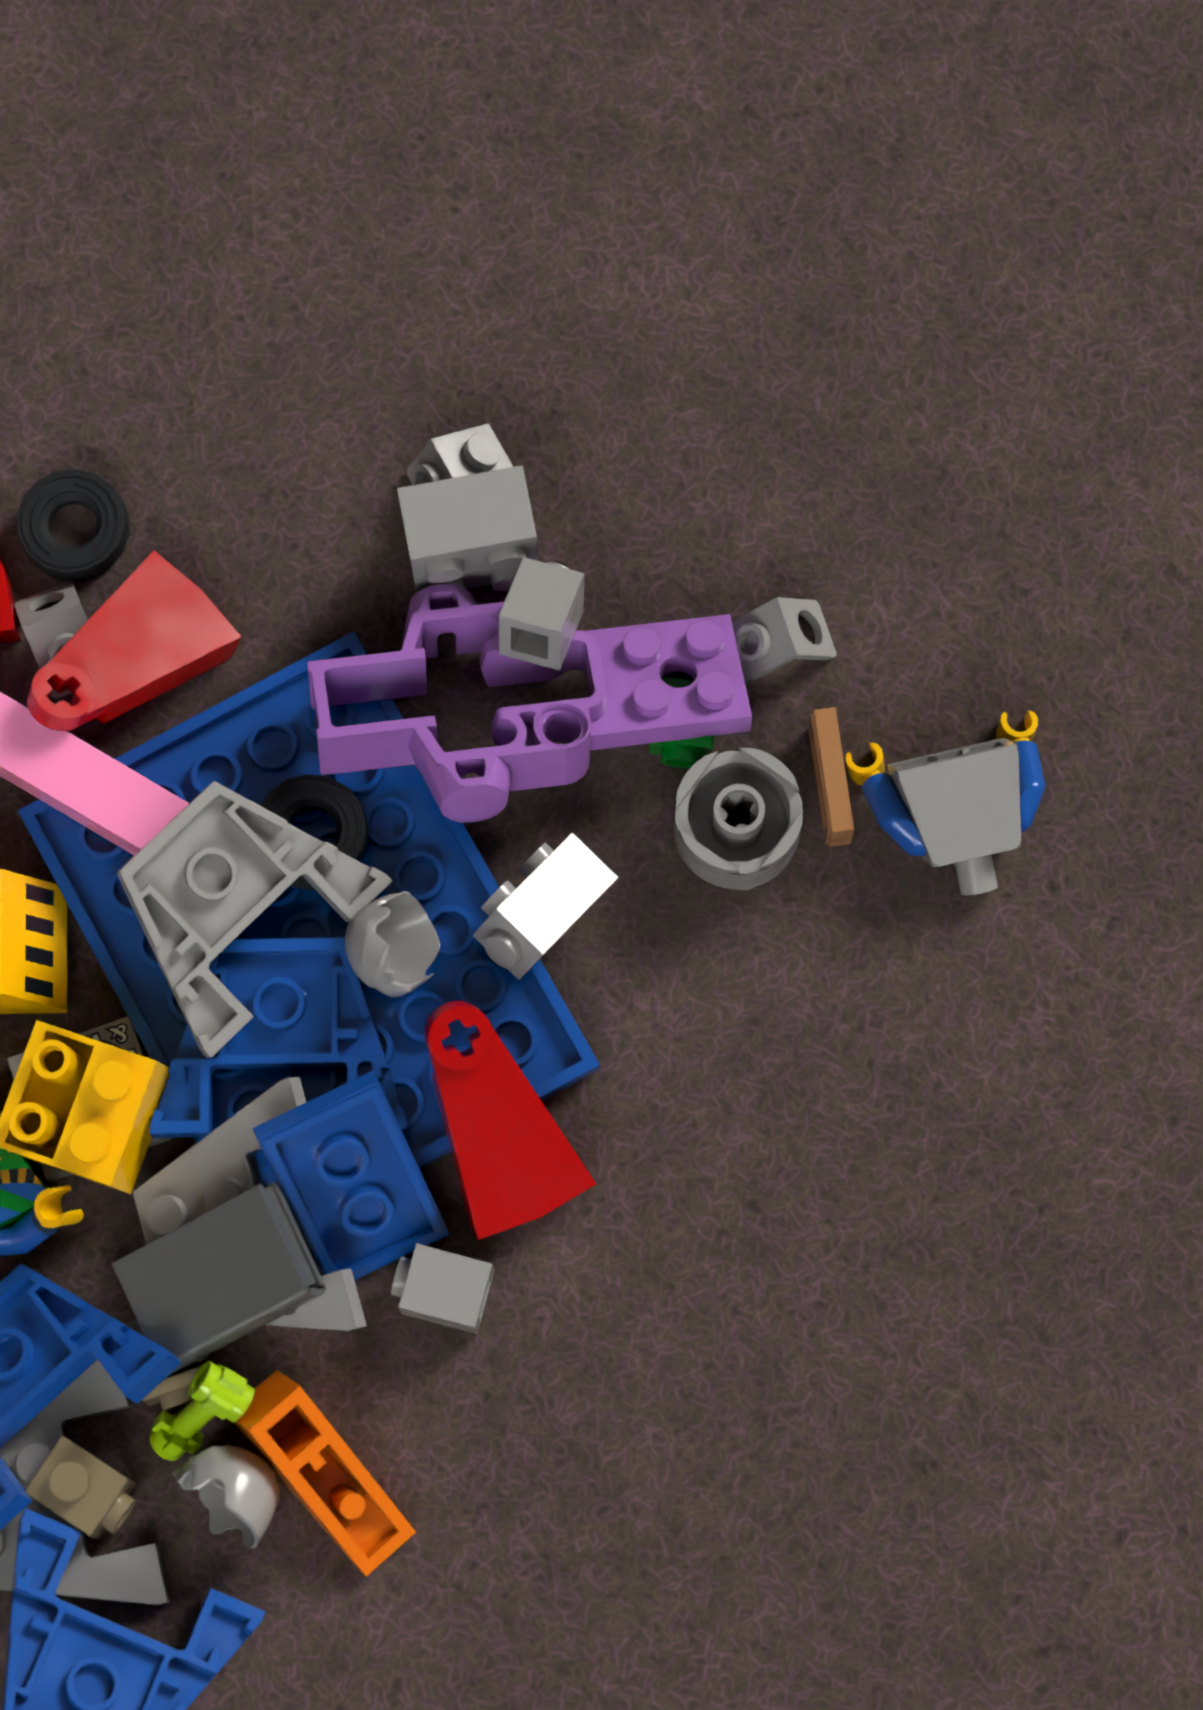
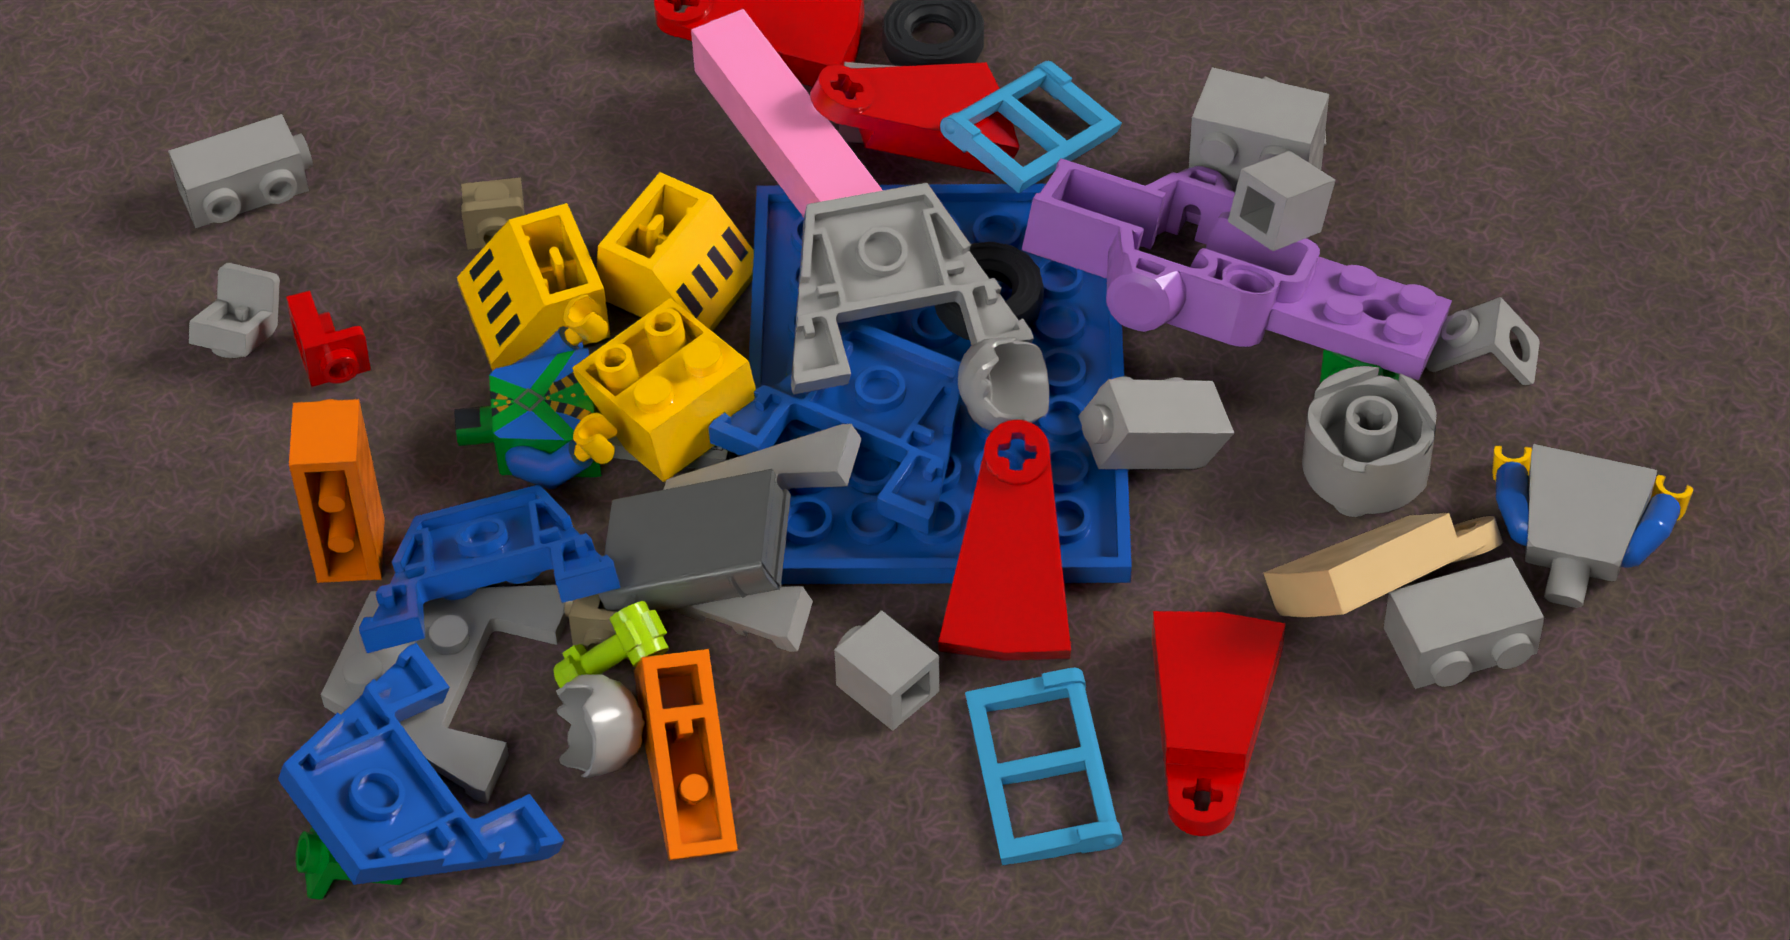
camera: 30 degrees right, 25 degrees down
(82, 1489) = (475, 668): dark tan bracket -> none
(204, 672) = (962, 132): none -> dark azure window
(351, 1178) = (857, 531): blue tile -> none
(663, 1274) = (1082, 838): none -> dark azure window
(738, 1162) = (1211, 701): none -> red piece
(813, 951) = (1376, 563): none -> tan piece
(830, 777) = (1473, 453): medium nougat tile -> none
(913, 969) = (1463, 623): none -> light grey brick

